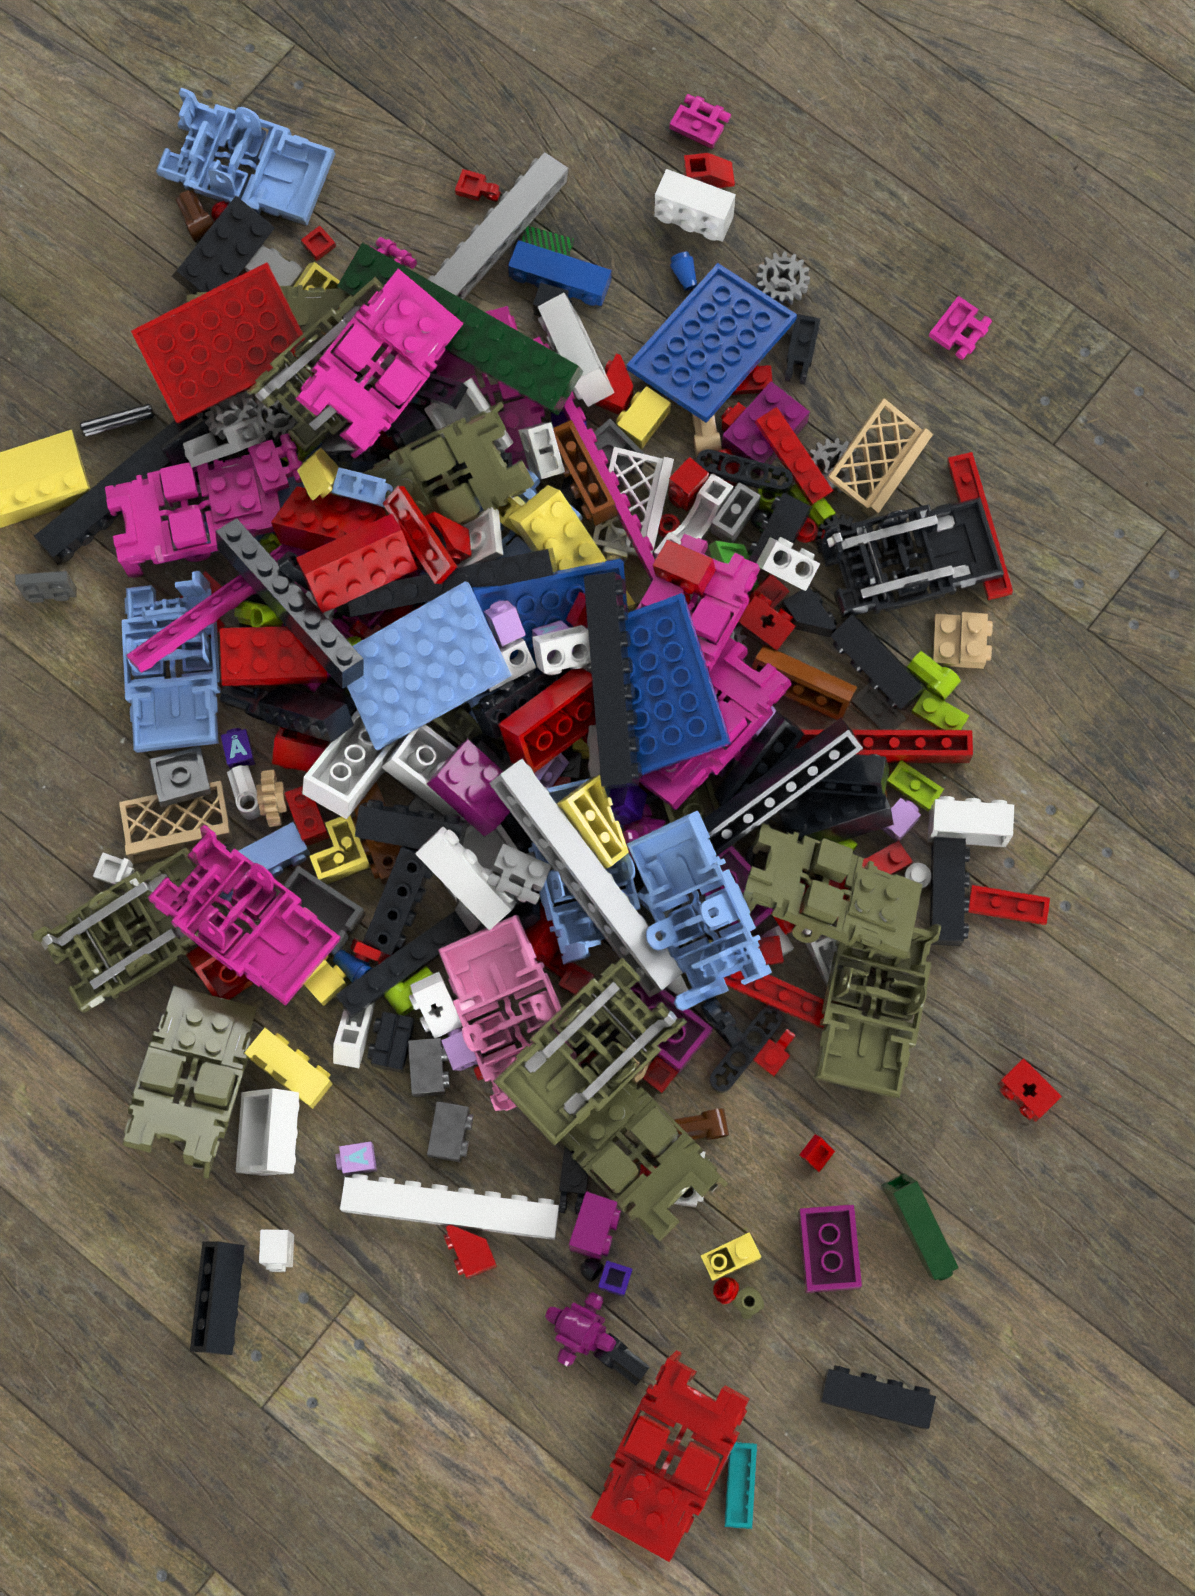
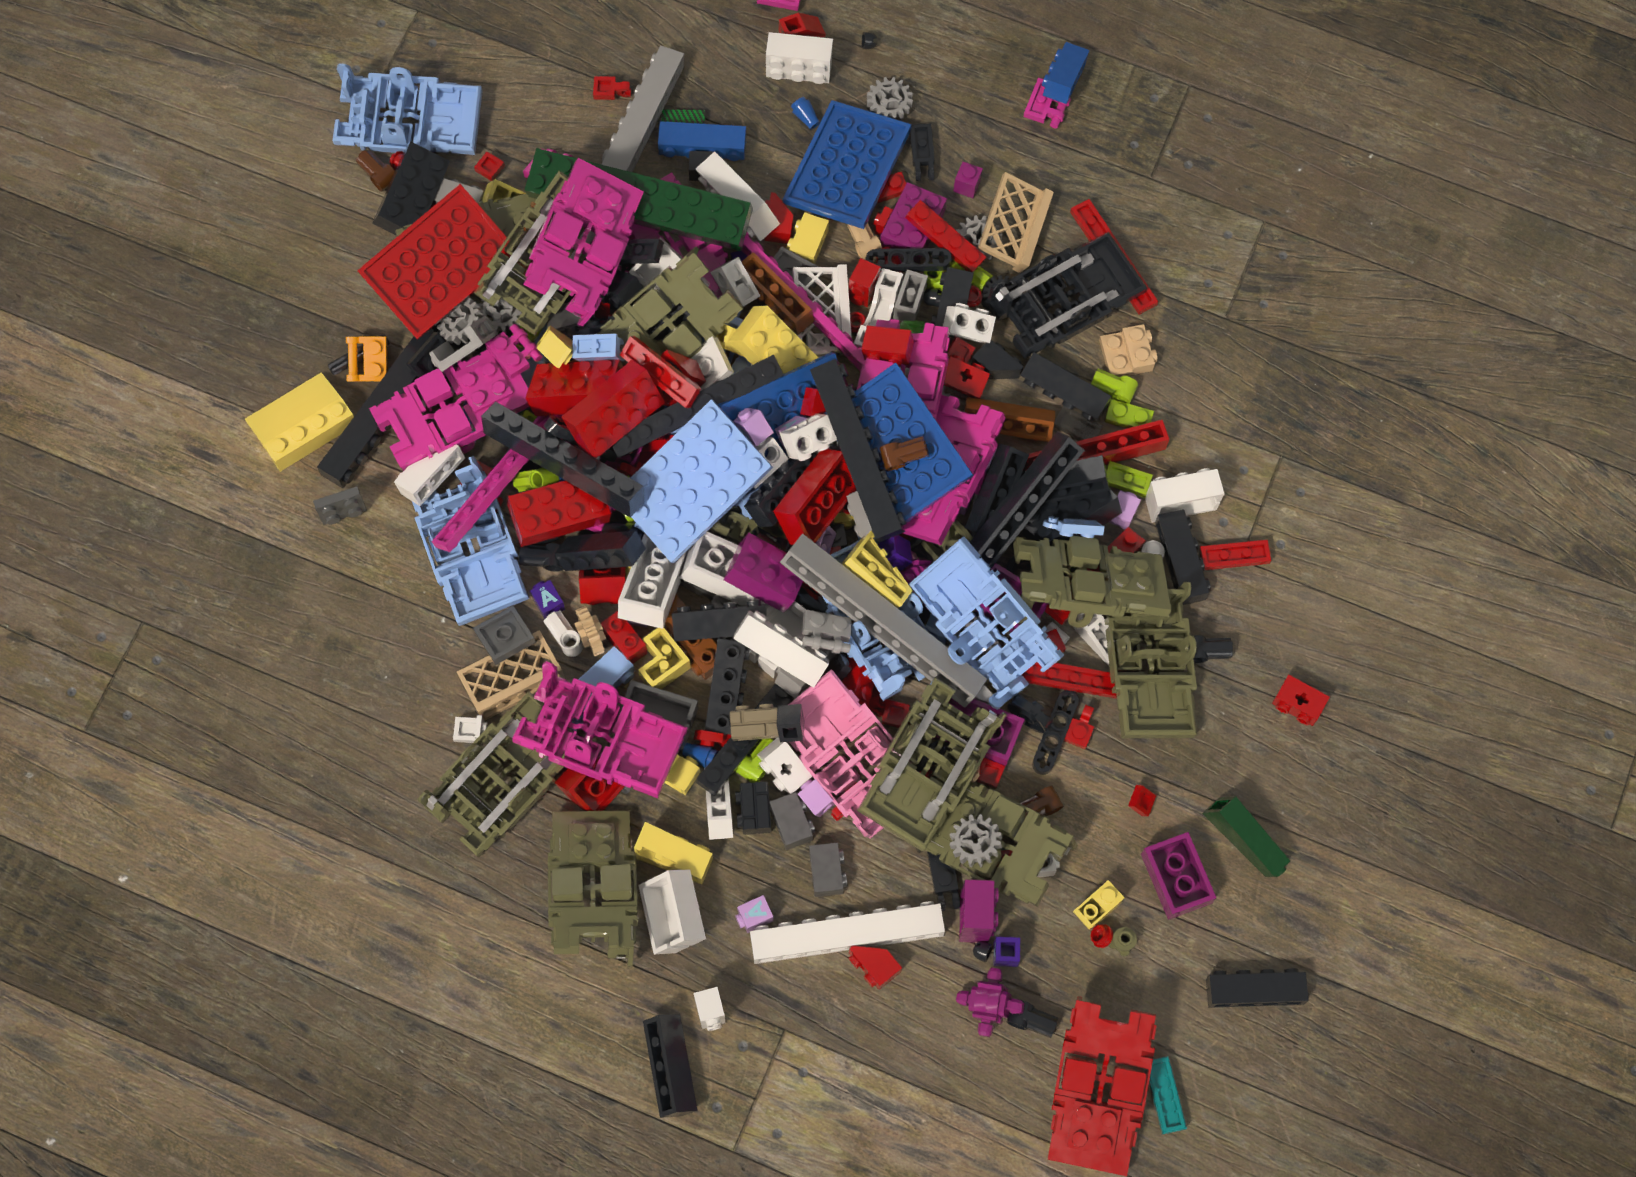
camera: 20 degrees left, 5 degrees down
(130, 431) = (374, 358): none -> light orange plate
(146, 577) = (425, 476): none -> white slope
(415, 952) = (754, 723): none -> dark tan brick
(452, 957) = (790, 723): none -> black brick
(611, 1162) = (986, 838): none -> light grey gear
(652, 698) = (897, 454): none -> reddish brown piece
(780, 202) = (868, 40): none -> black hinge
(830, 828) = (1067, 527): none -> light blue hinge
(842, 394) = (967, 180): none -> magenta brick
(940, 1002) = (1212, 649): none -> black piece
(989, 298) = (1065, 72): none -> blue brick

